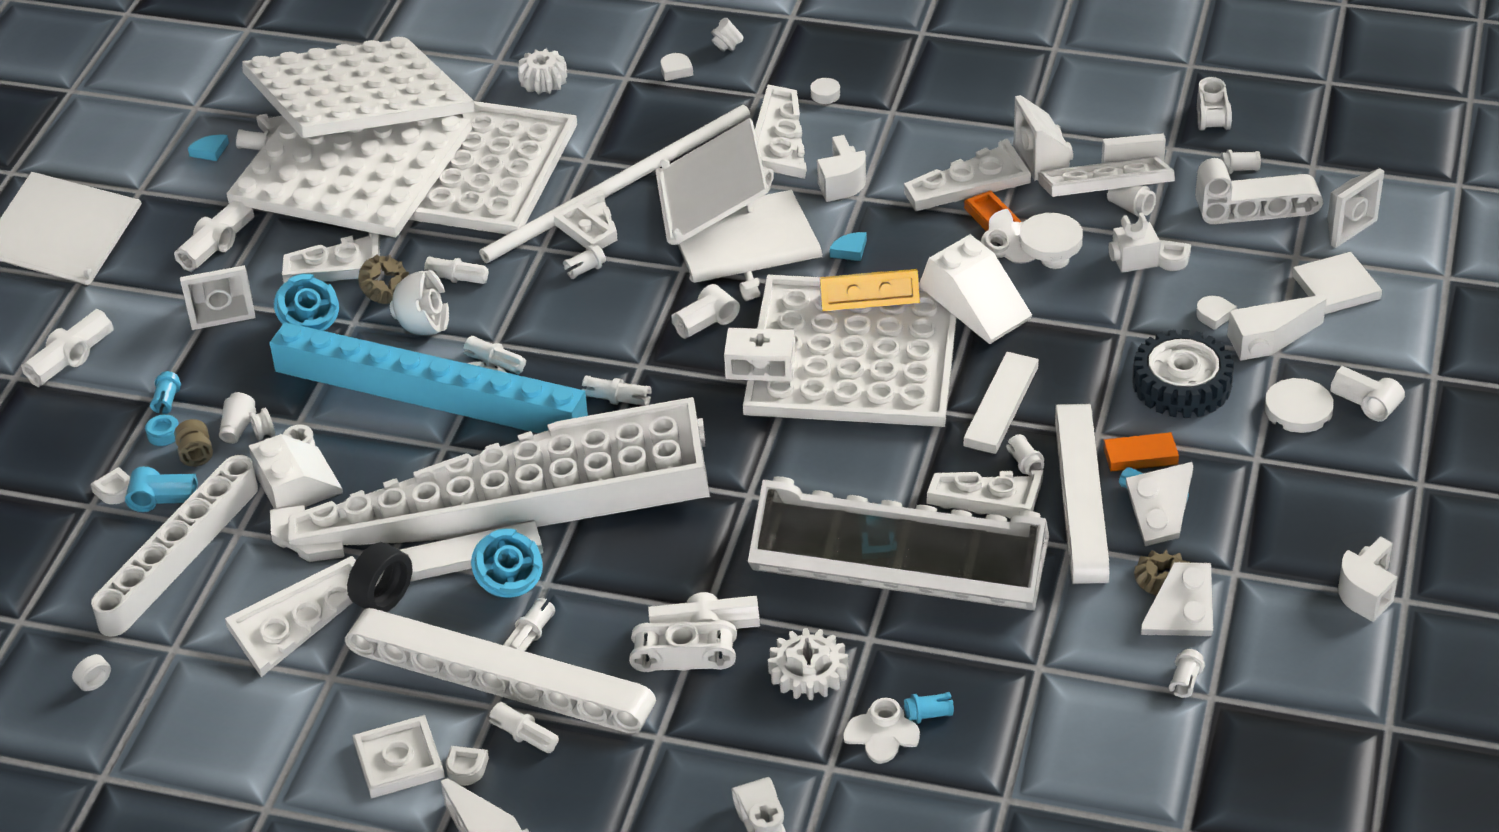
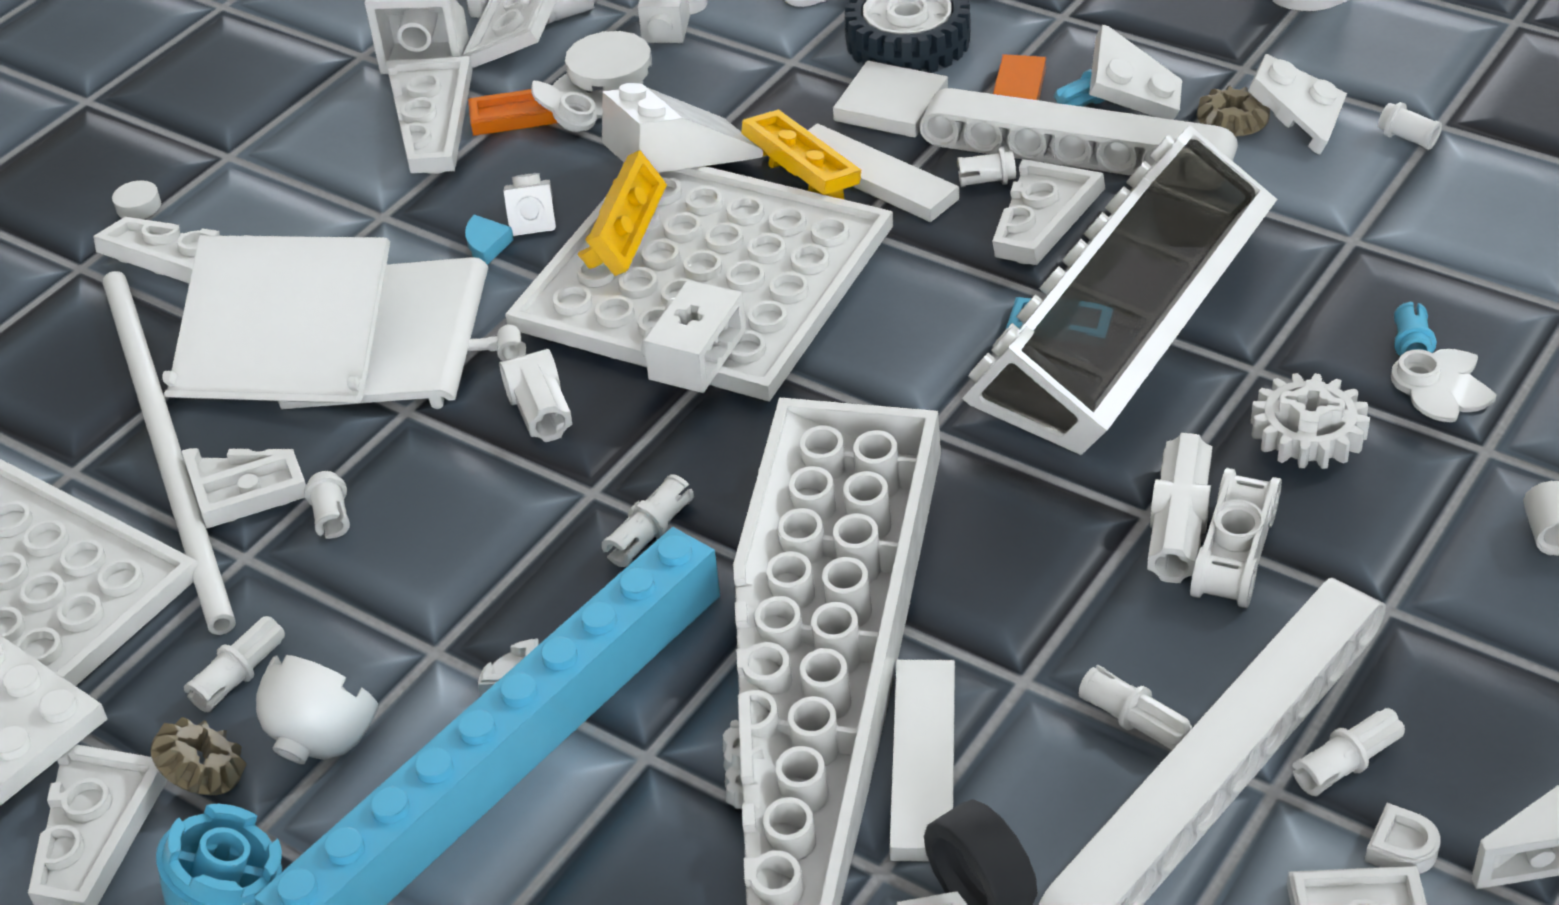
camera: 70 degrees left, 0 degrees up
(494, 355) = (477, 648): white axle -> none
(506, 563) = (1013, 694): medium azure cone -> none
(843, 173) = (329, 204): white brick -> none
(889, 248) = (529, 205): none -> white bracket
(985, 356) = (801, 153): none -> yellow plate
(1096, 384) = (888, 98): none -> white tile

